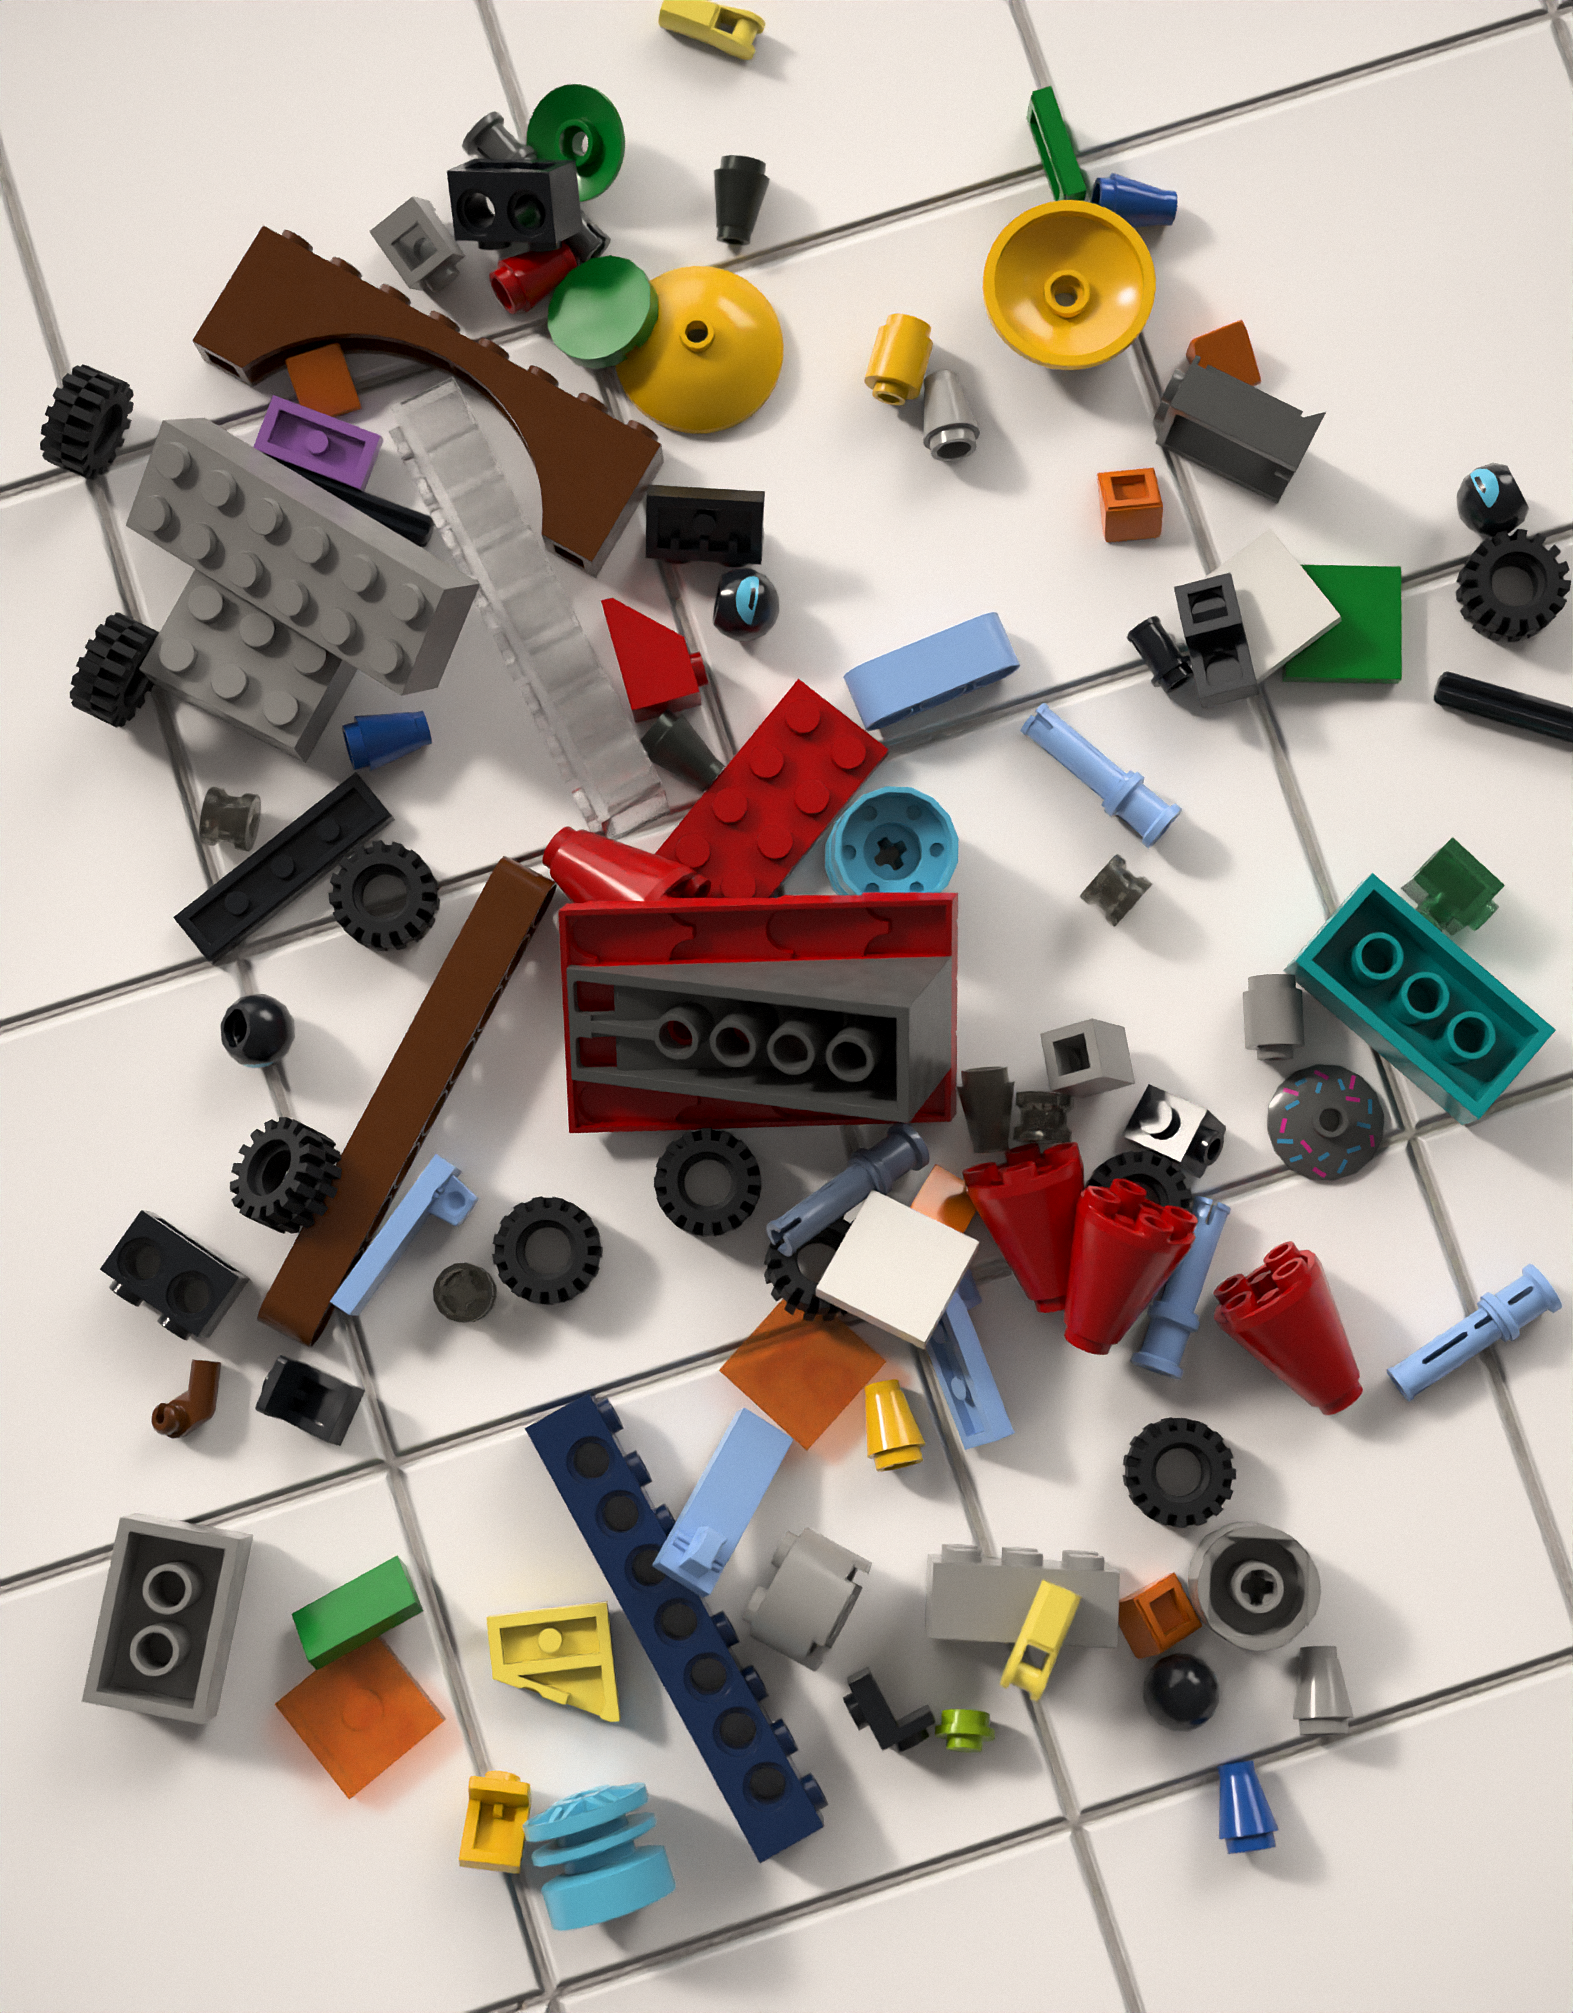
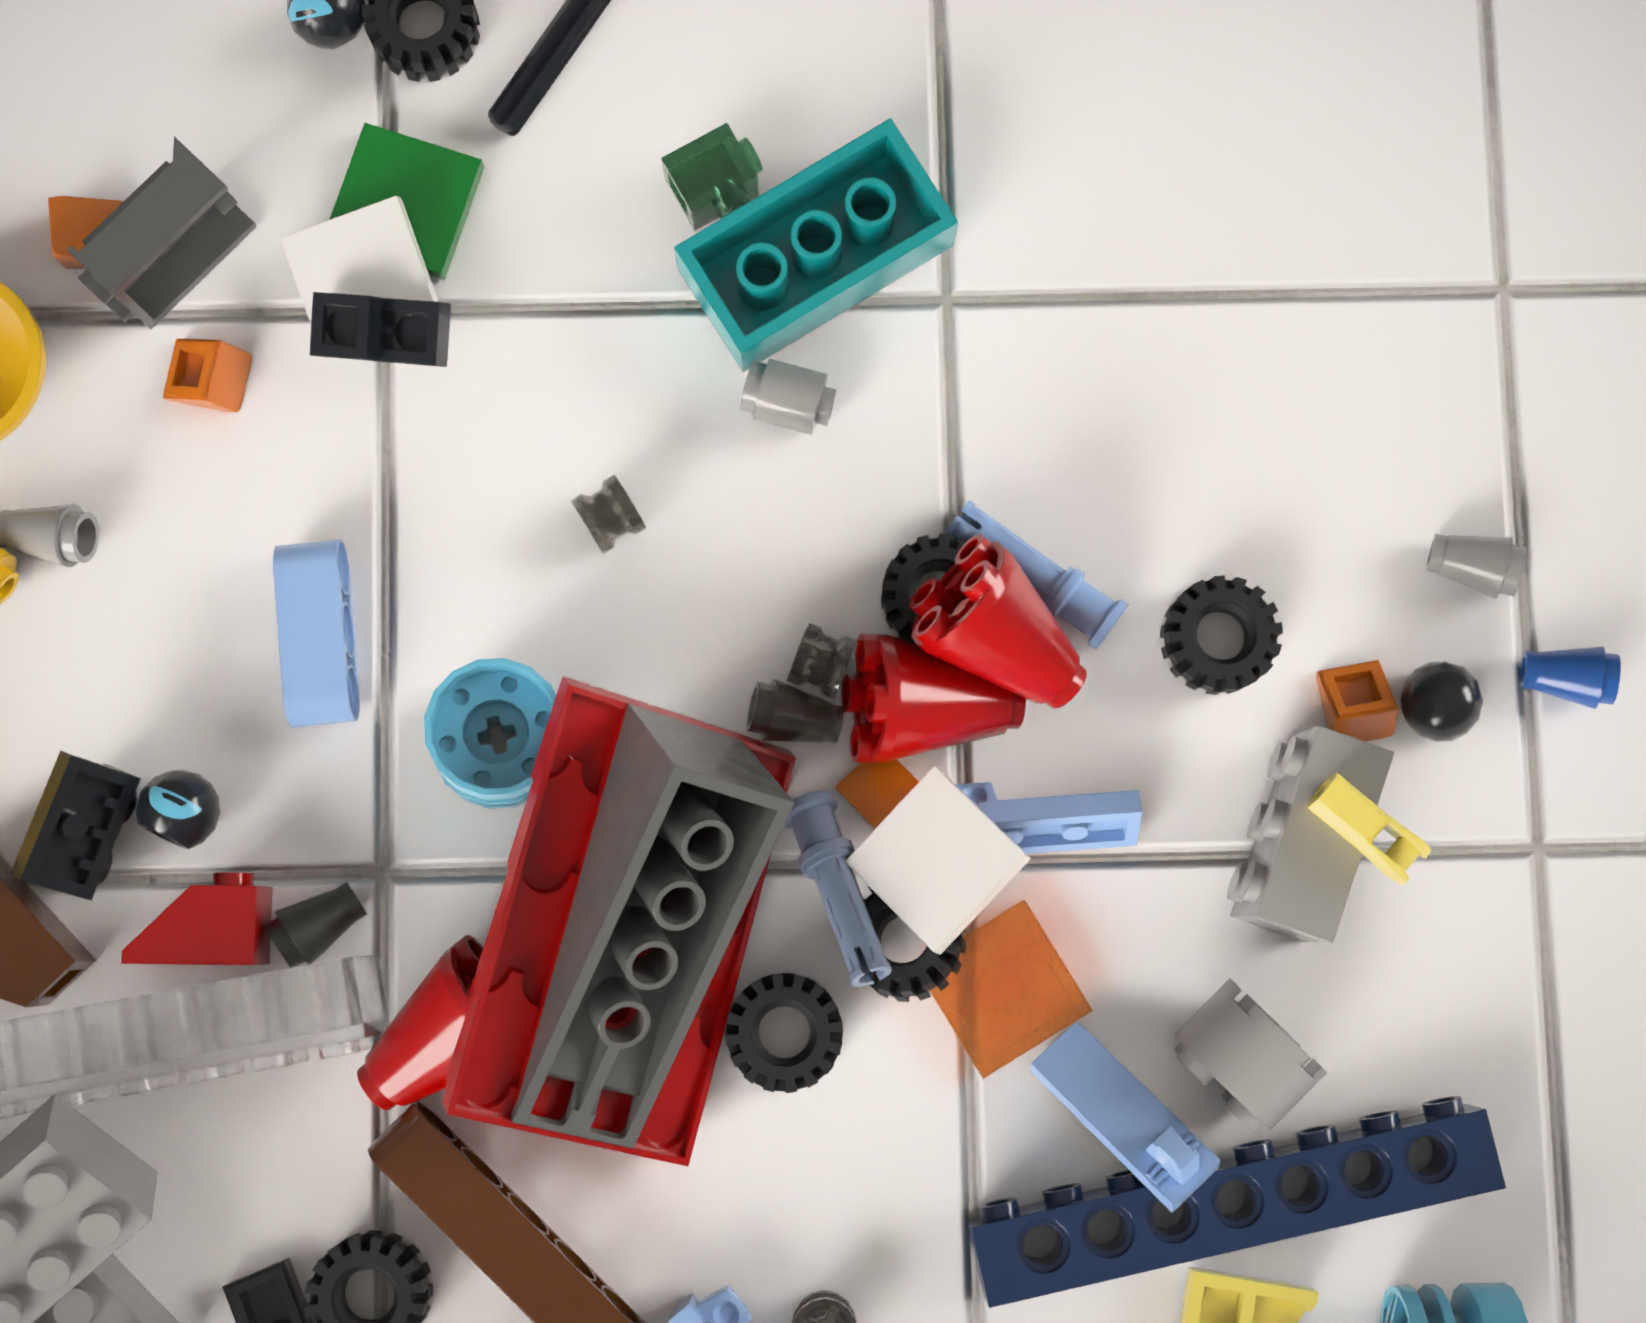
camera: 80 degrees left, 0 degrees up
(384, 738) = (195, 1244): blue cone -> none
(511, 1243) = (795, 1265): black tyre -> none
(775, 797) = (398, 839): red plate -> none
(870, 1709) = (1373, 1023): black bracket -> none
(891, 1427) = (1093, 915): yellow cone -> none
(965, 1730) = (1421, 932): lime plate -> none
(1087, 1058) = (774, 596): light grey brick -> none
(1121, 792) = (507, 476): light blue pin -> none
(1160, 655) = (376, 392): black pin -> none
(1176, 1130) = (874, 530): black bracket -> none
(1277, 1610) = (1388, 580): light grey brick -> none
(1292, 1327) = (1107, 476): red cone -> none
(1296, 1127) = (903, 408): dark grey dish -> none
(1496, 1318) = (1156, 265): light blue pin -> none

